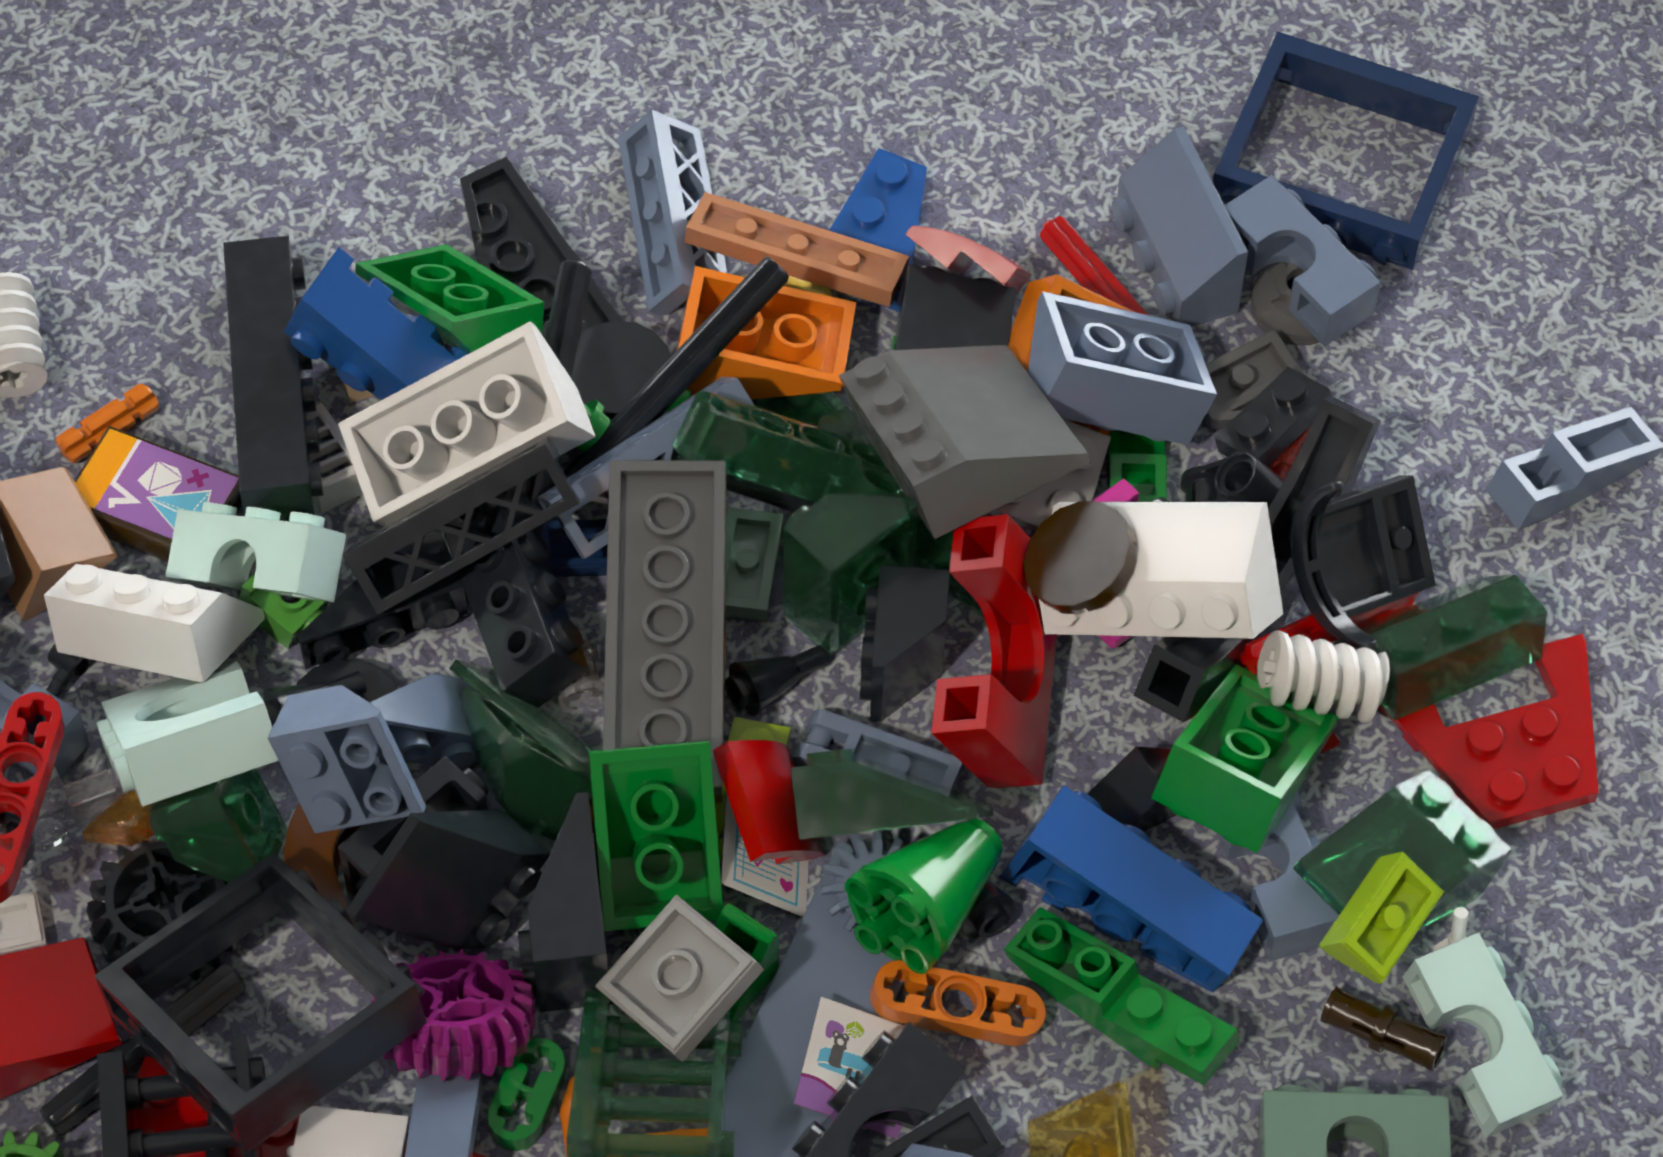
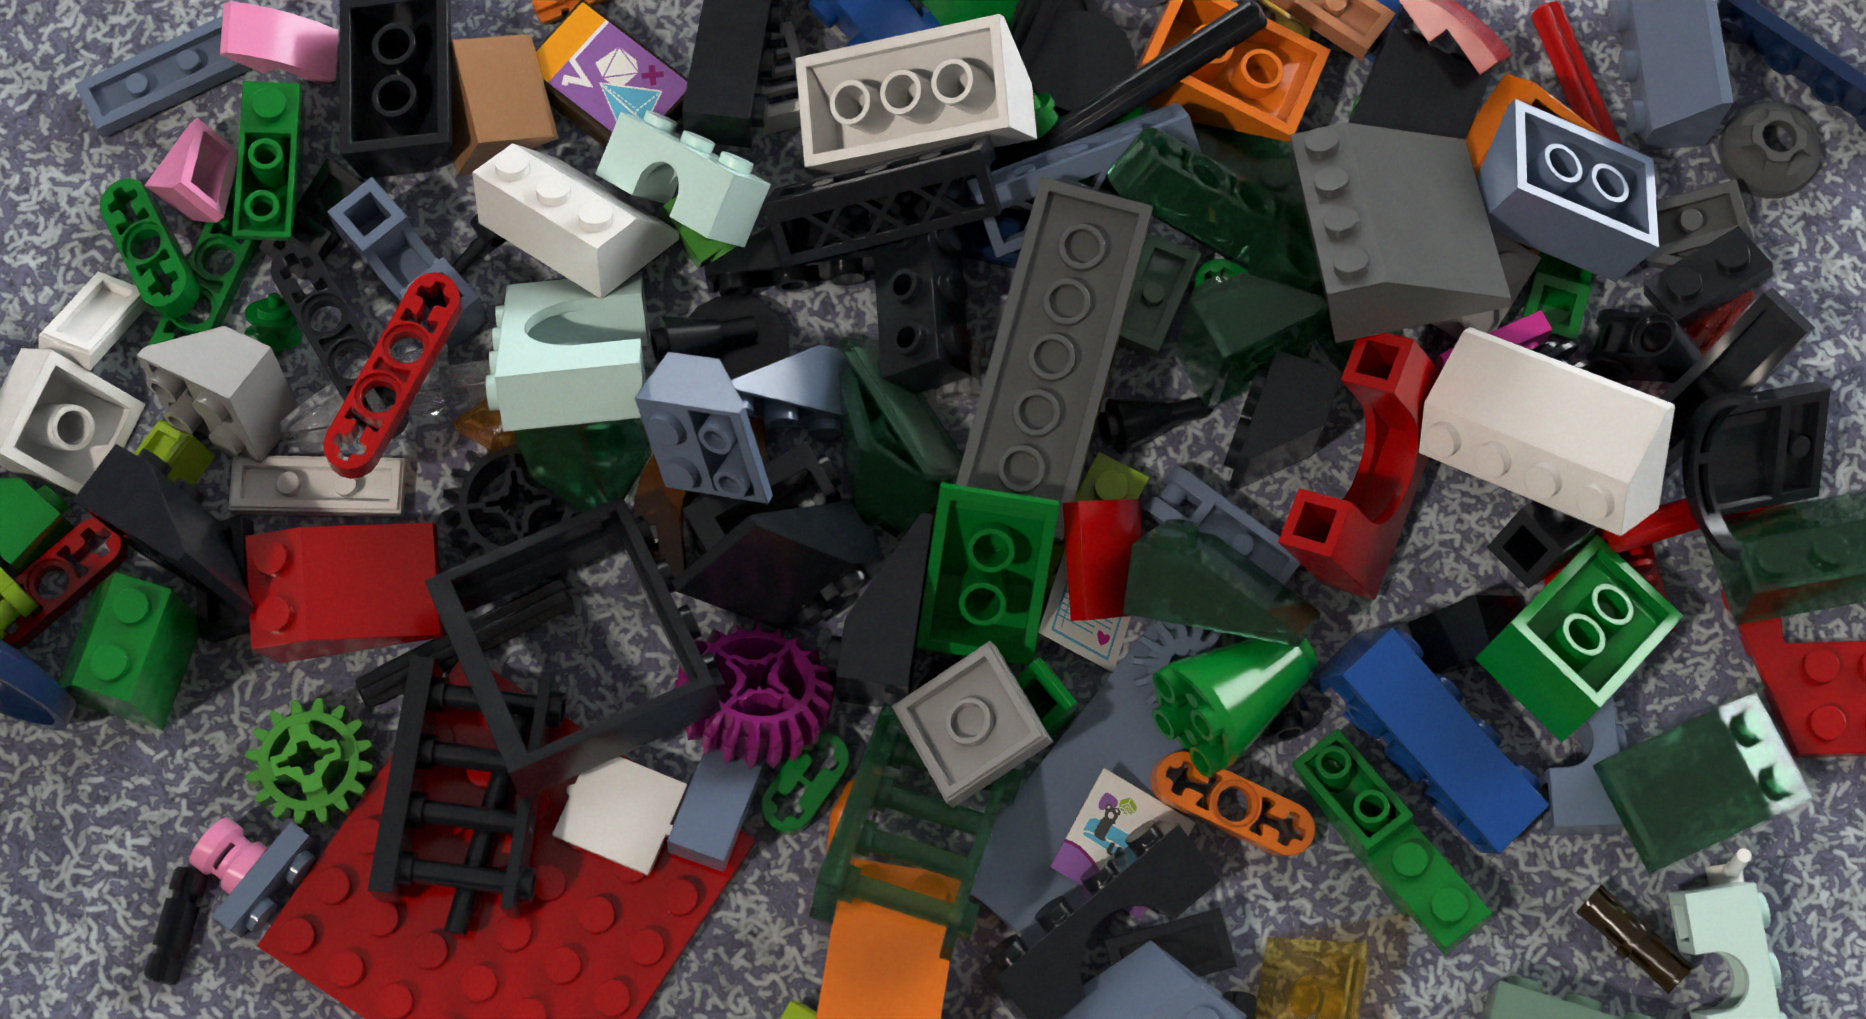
camera: 15 degrees right, 15 degrees up
(1080, 557) = (1474, 398): tile -> none
(1325, 673) = (1679, 577): white piece -> none
(1335, 285) = (1771, 75): sand blue arch -> none
(1382, 917) = (1664, 844): lime slope -> none

